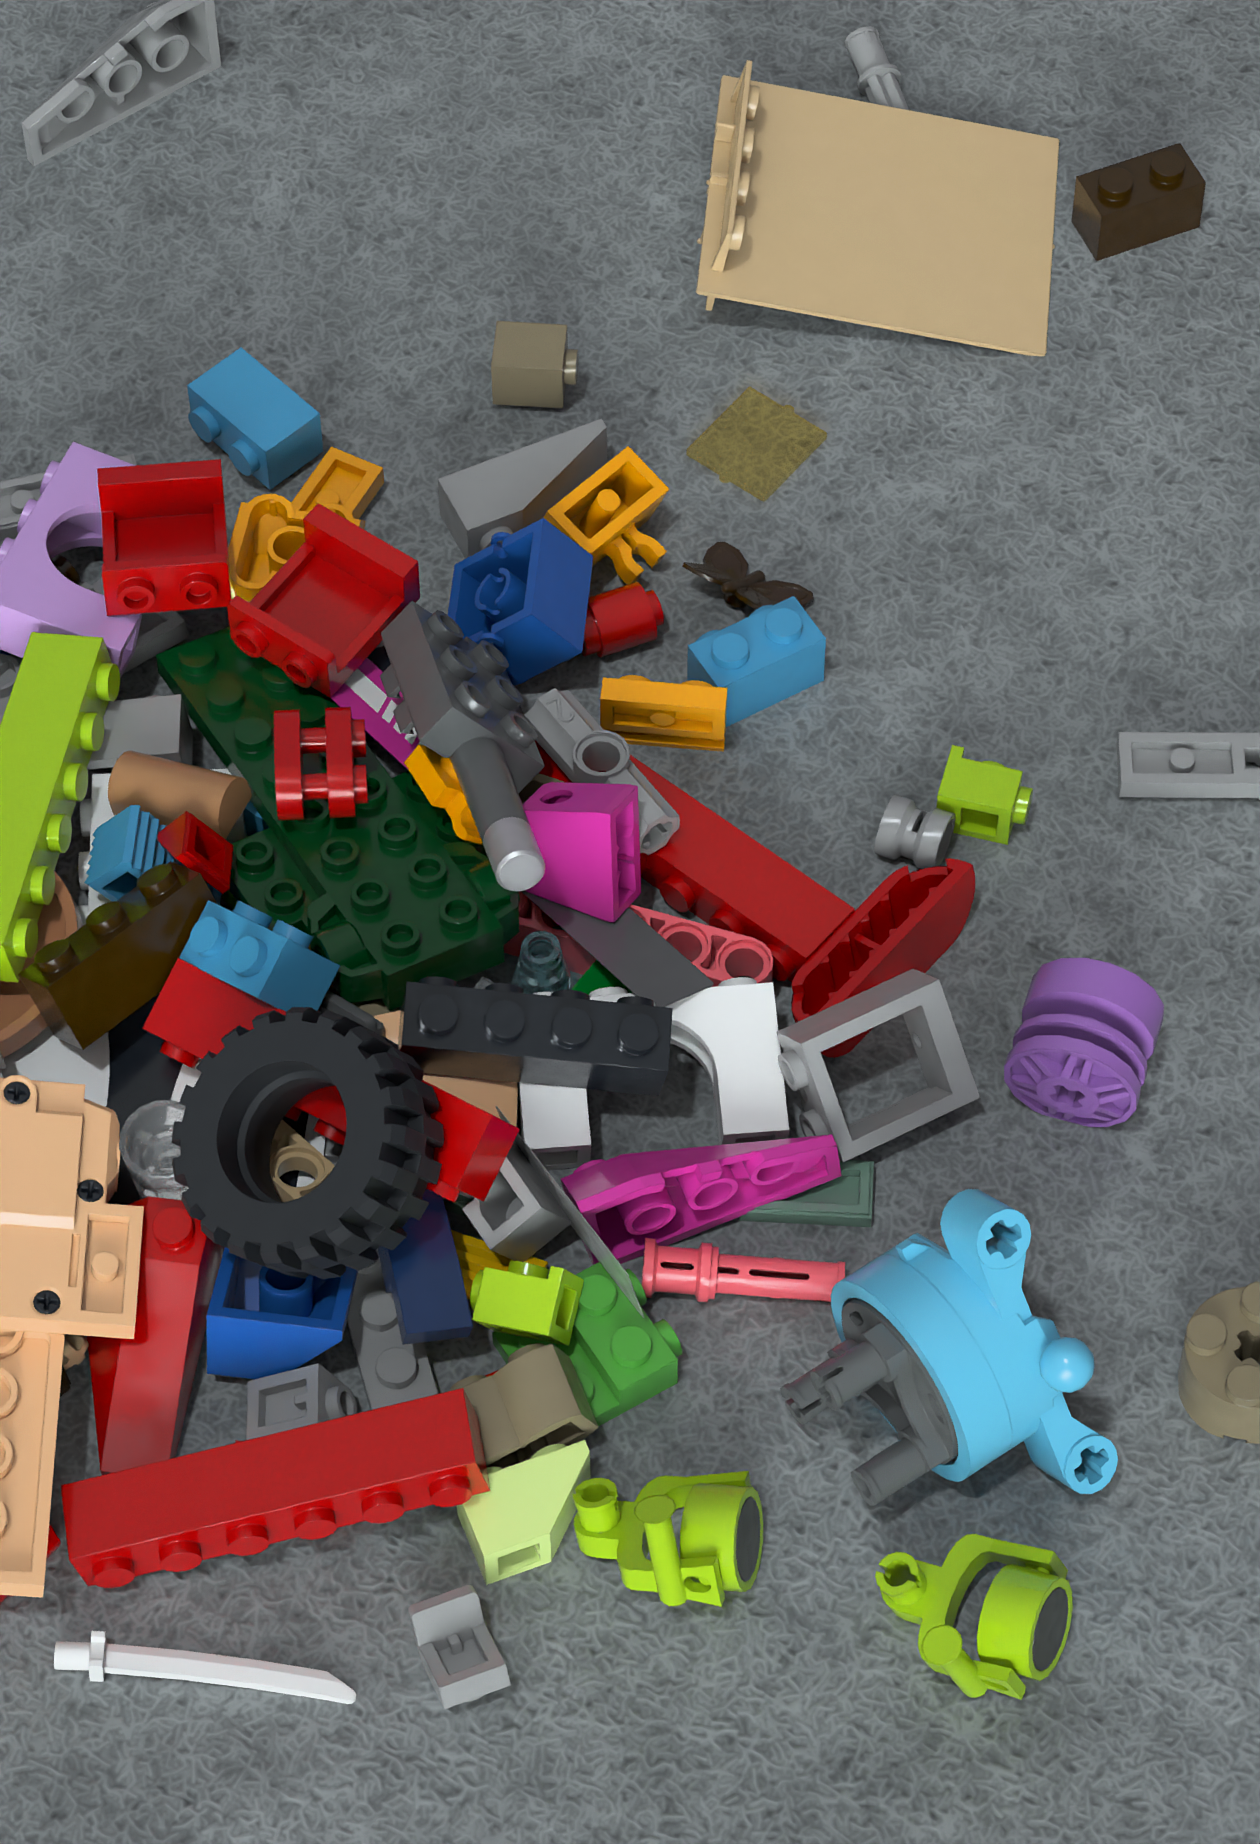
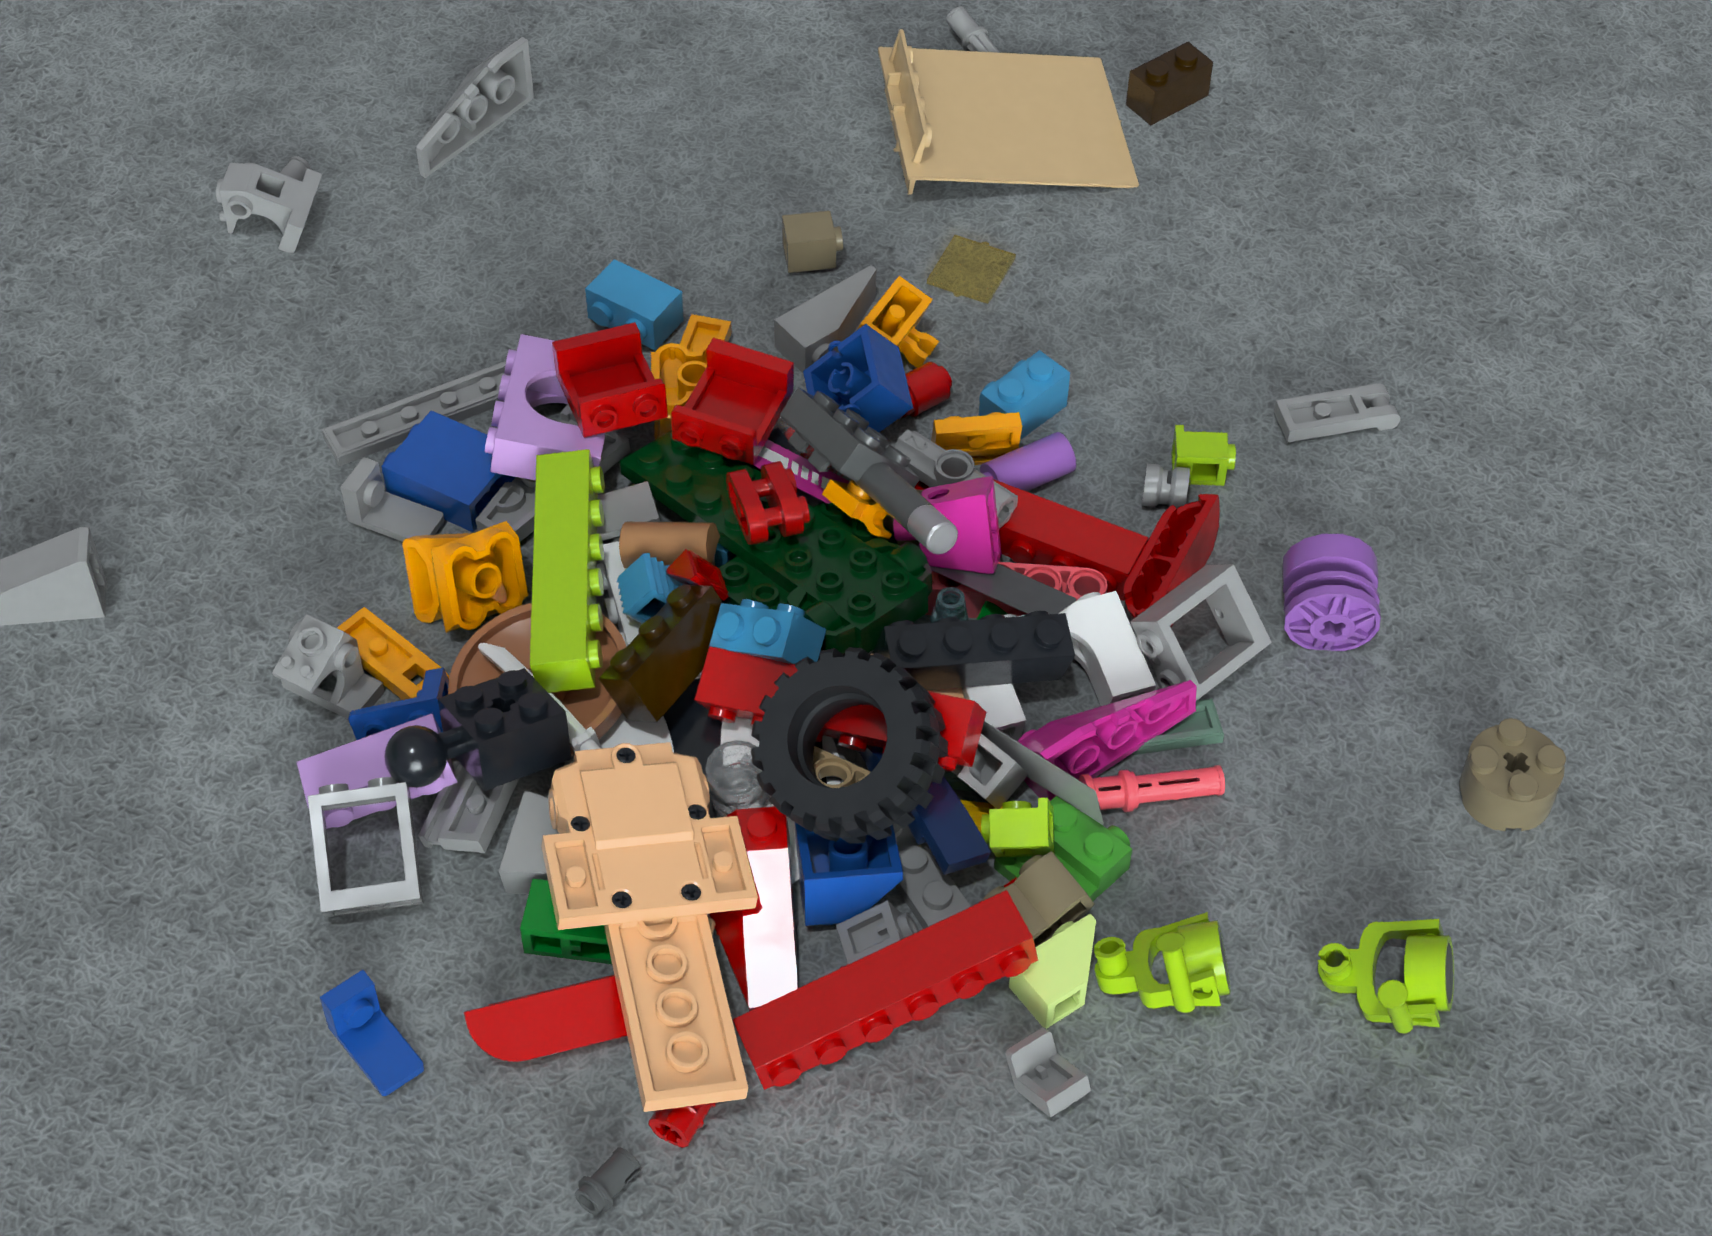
camera: 15 degrees left, 5 degrees down
(102, 1658) = (795, 1135): white sword -> none
(728, 568) = (993, 357): dark brown piece -> none
(732, 765) = (1033, 463): none -> medium lavender brick
(956, 1359) = (1333, 803): medium azure piece -> none

